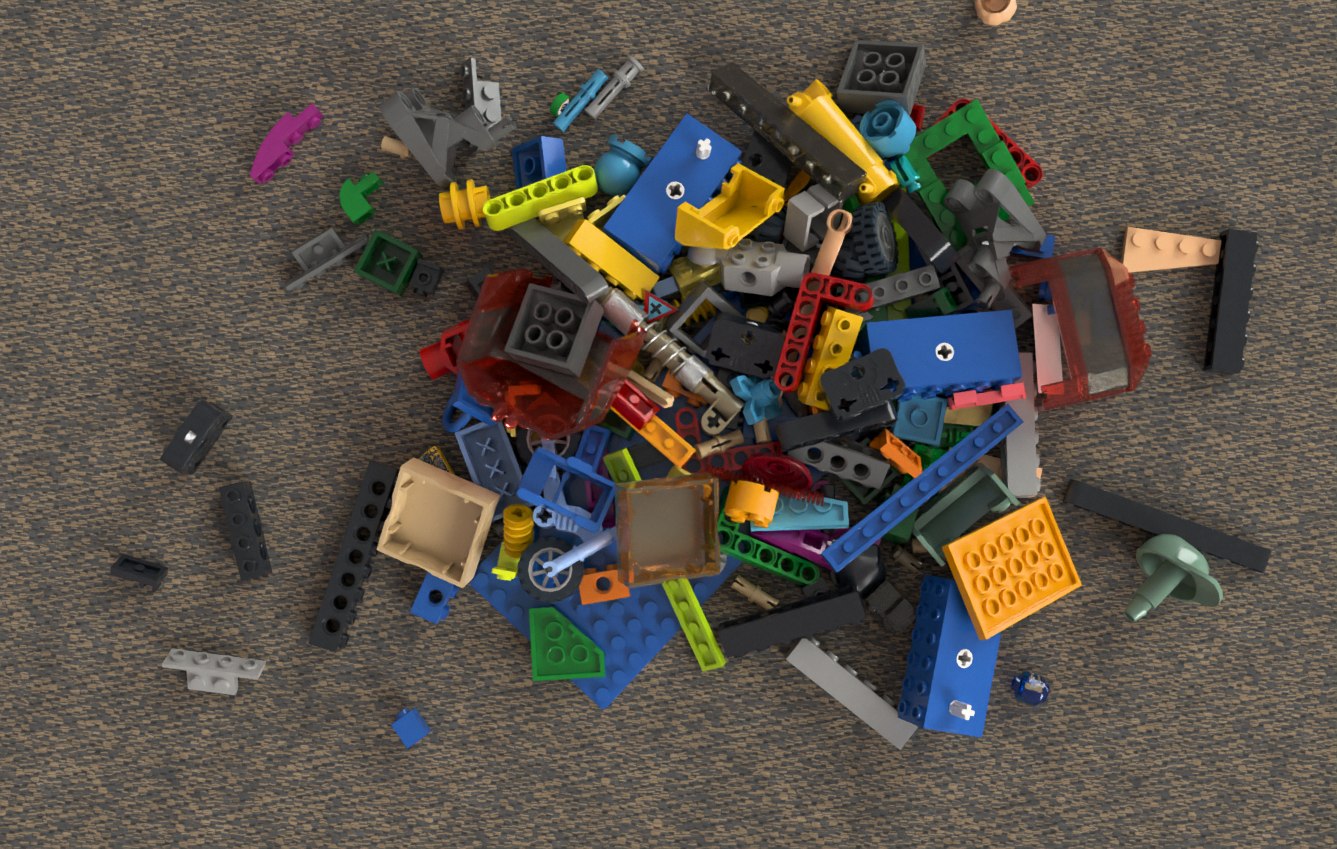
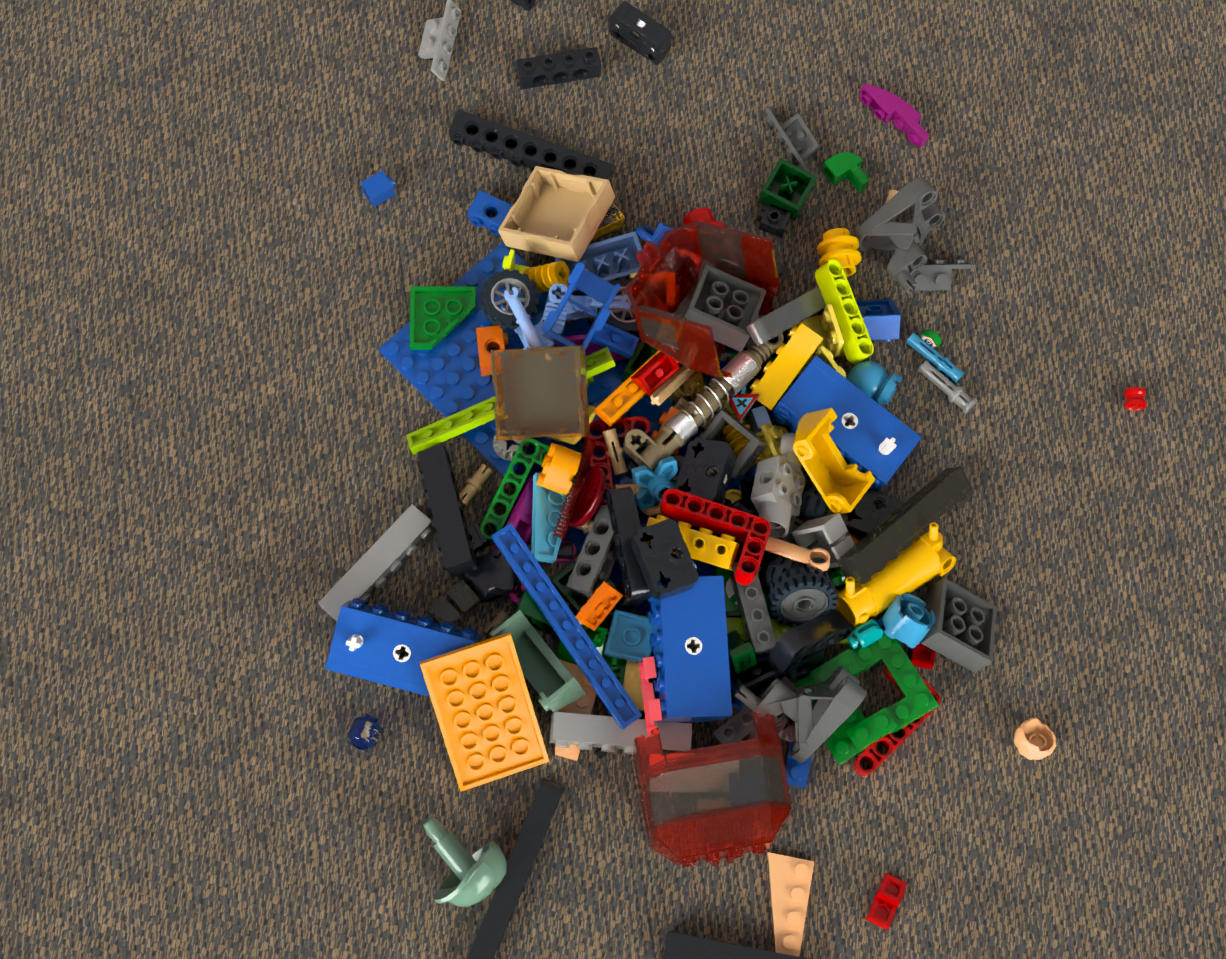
camera: 85 degrees right, 15 degrees down
(645, 455) = (605, 384): black plate -> none
(1157, 154) = (886, 901): none -> red slope

